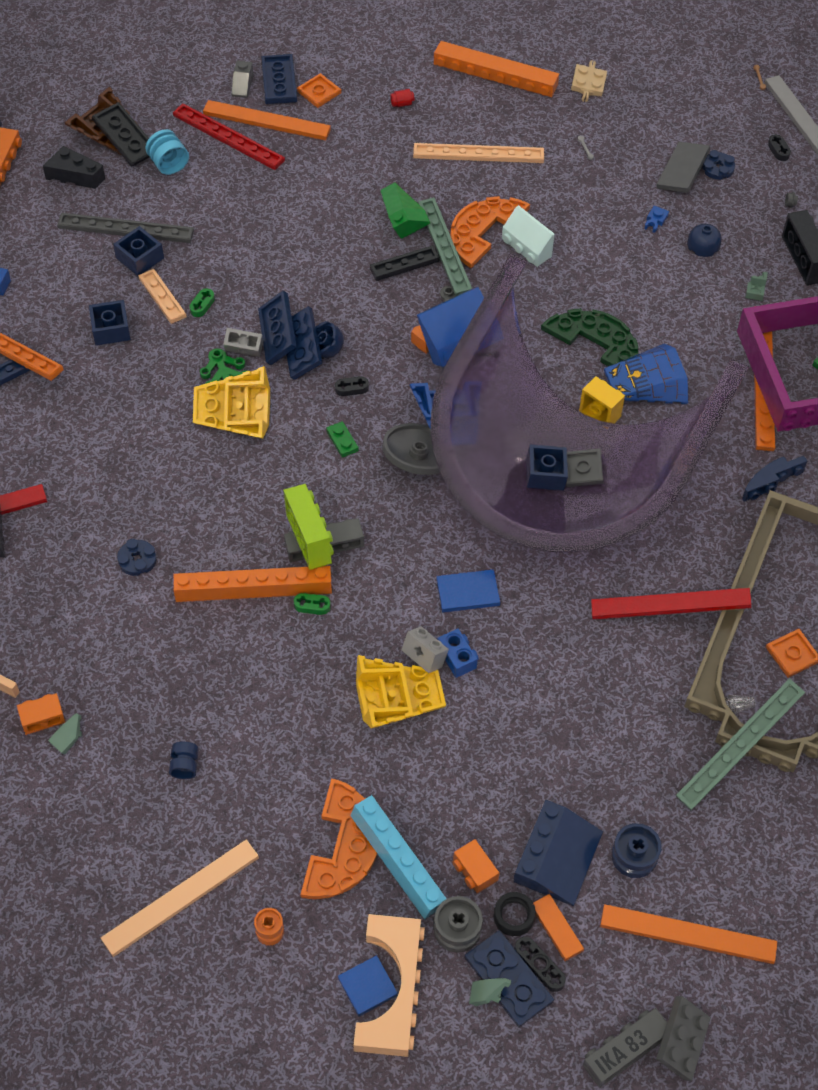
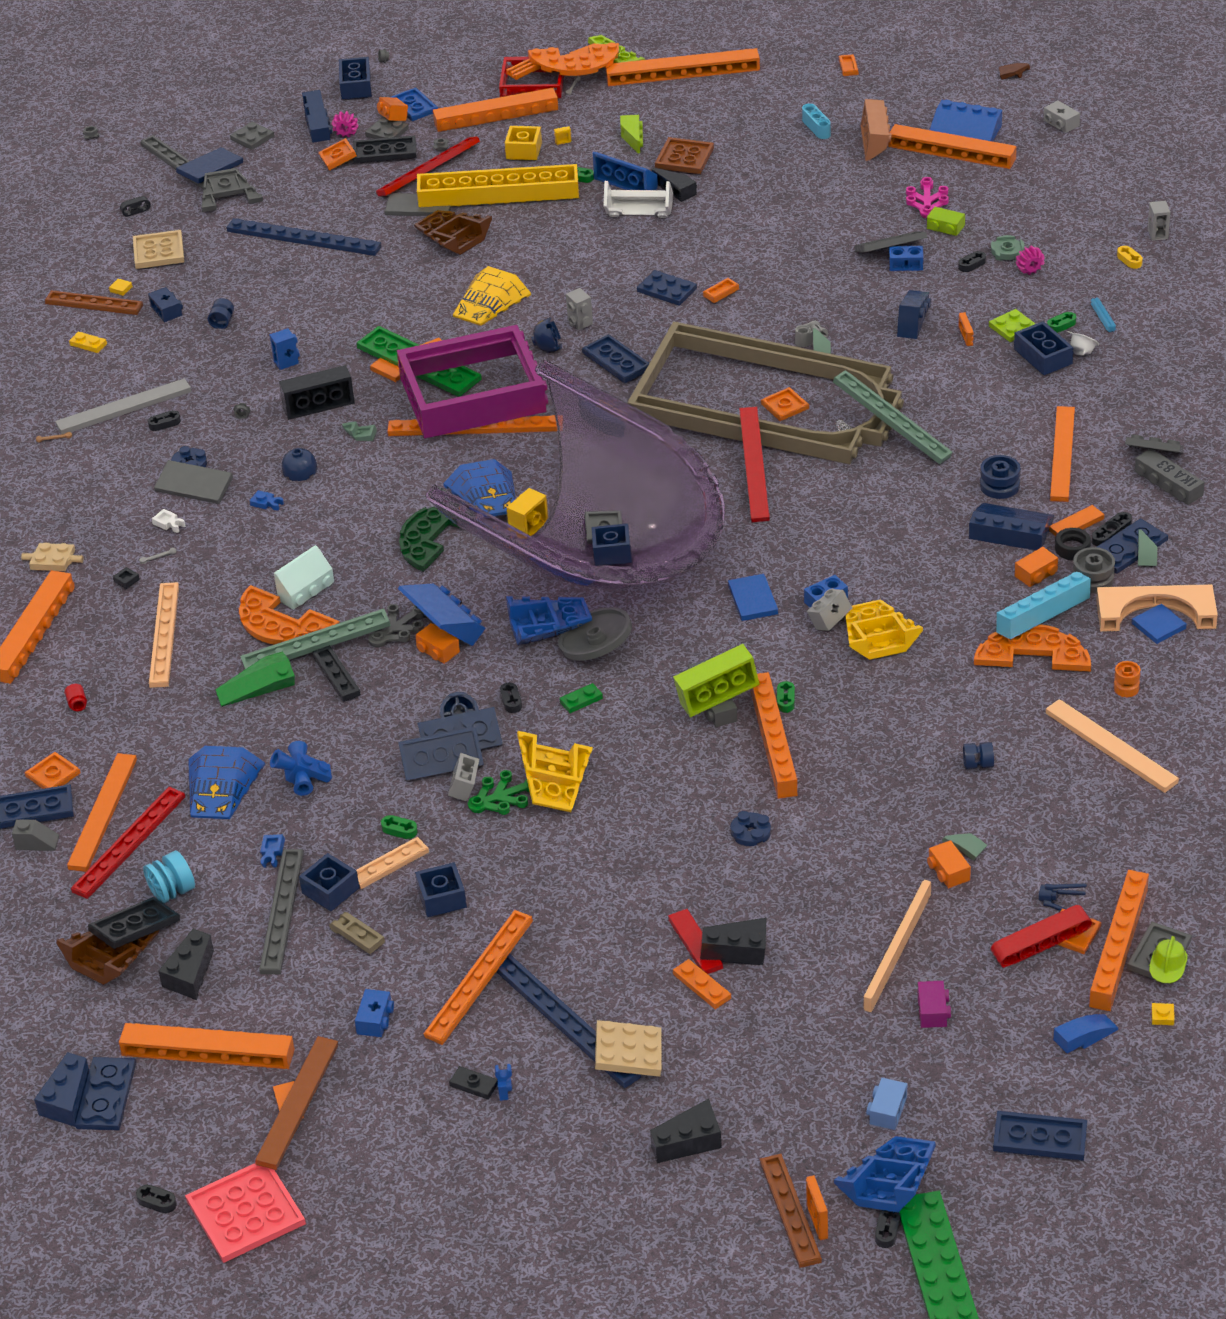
camera: 90 degrees left, 15 degrees down
(83, 272) = (357, 932): none -> dark tan plate
(194, 220) = (271, 847): none -> blue plate
(279, 233) = (300, 767): none -> blue brick
(281, 189) = (220, 779): none -> blue wedge
(553, 125) = (126, 577): none -> black plate
(630, 149) = (167, 519): none -> white plate

